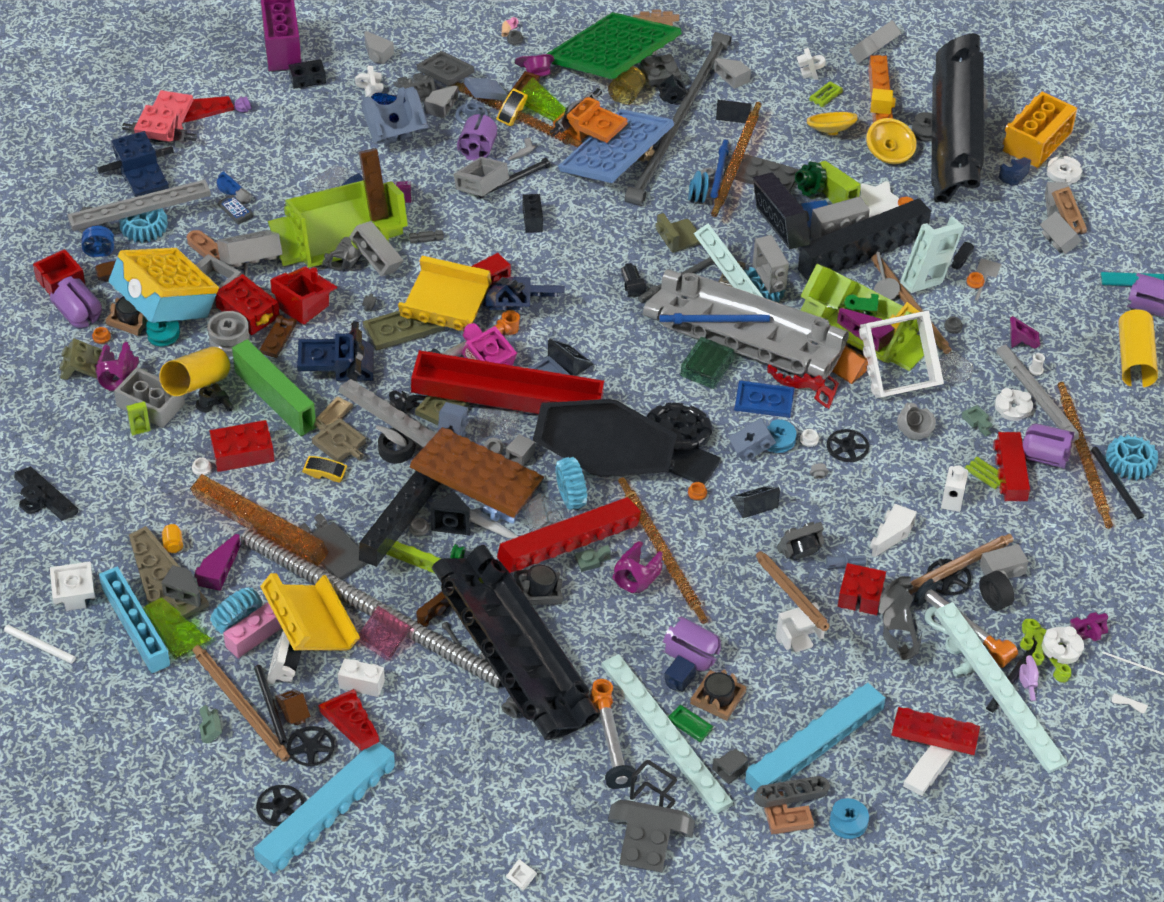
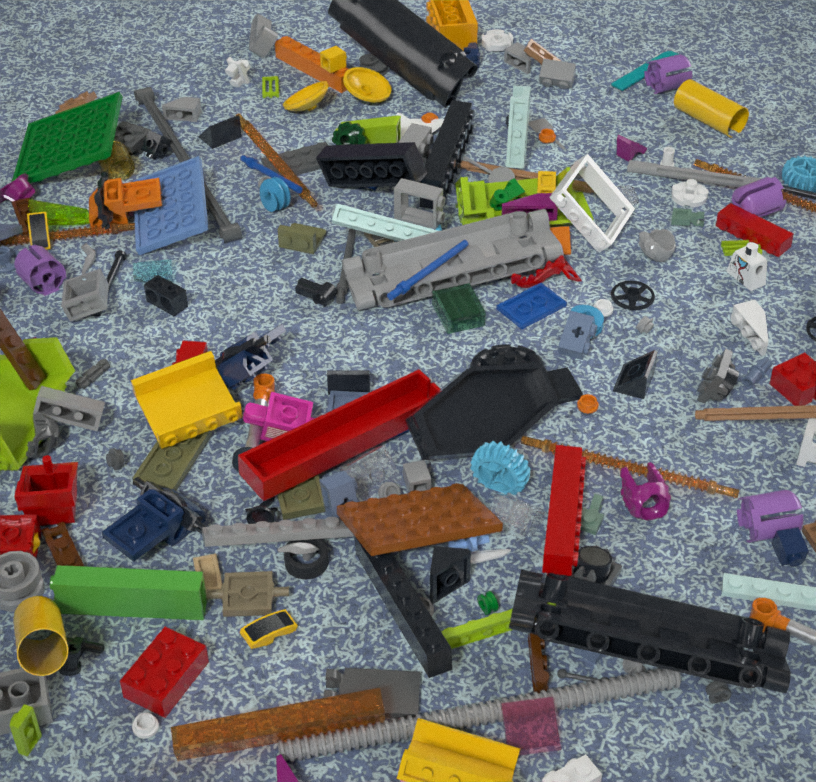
camera: 45 degrees left, 5 degrees down
(550, 191) = (147, 270): none -> clear light blue wing

